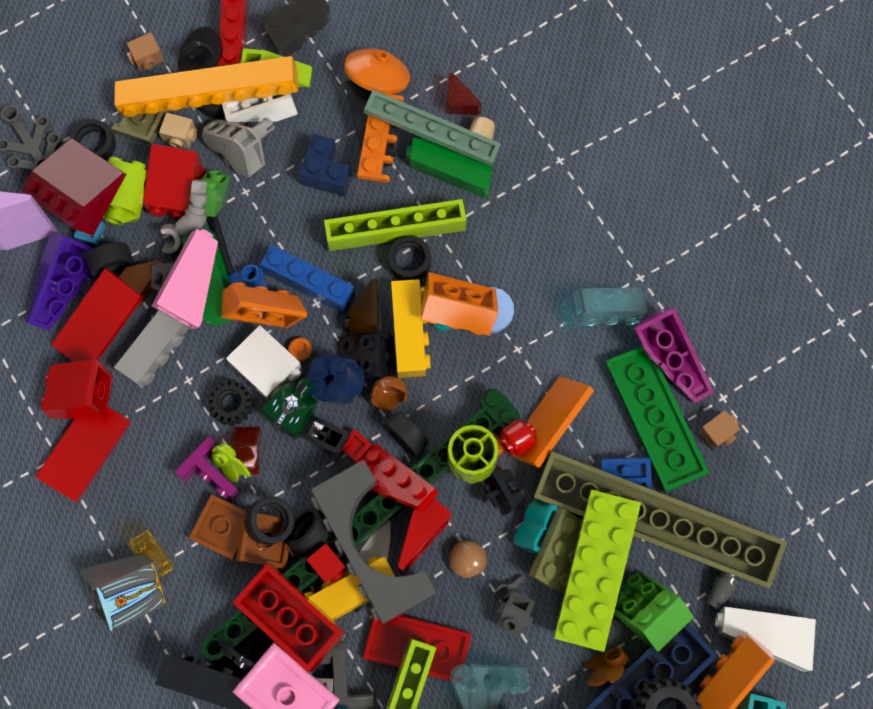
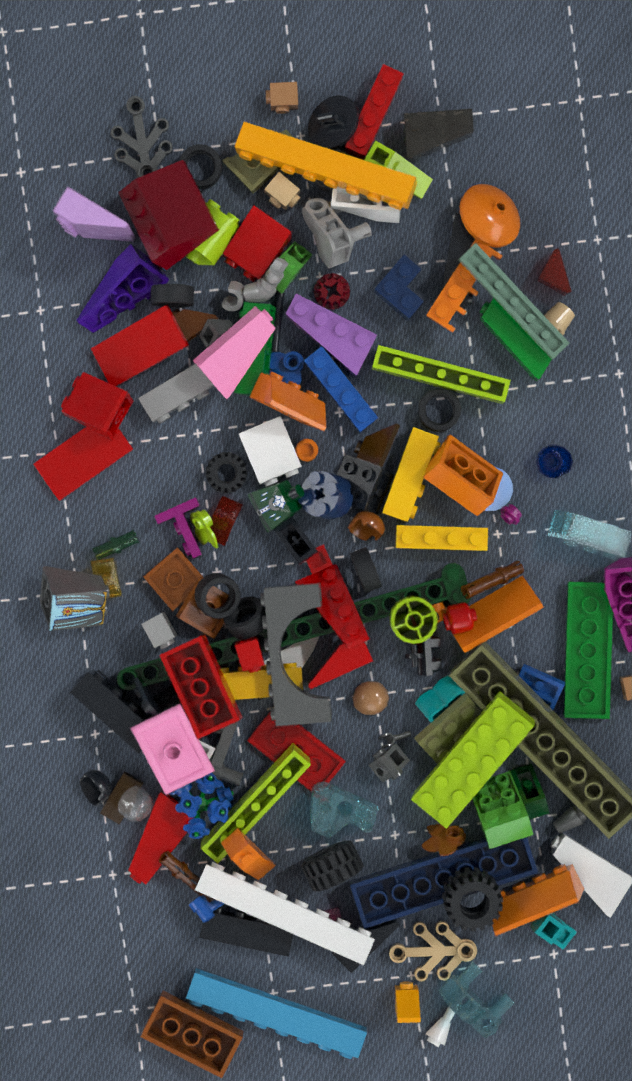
camera: 20 degrees right, 15 degrees up
(150, 519) = (115, 545): none -> clear green pin
(224, 582) = (160, 631): none -> light grey brick
(268, 205) = (334, 301): none -> dark red gear
(290, 231) = (338, 336): none -> medium lavender wedge
(465, 373) = (441, 537): none -> yellow brick
(521, 323) = (510, 514): none -> magenta plate
(538, 257) = (554, 461): none -> clear blue hair
(538, 383) = (499, 576): none -> reddish brown pin
(669, 577) = (530, 791): none -> dark green slope

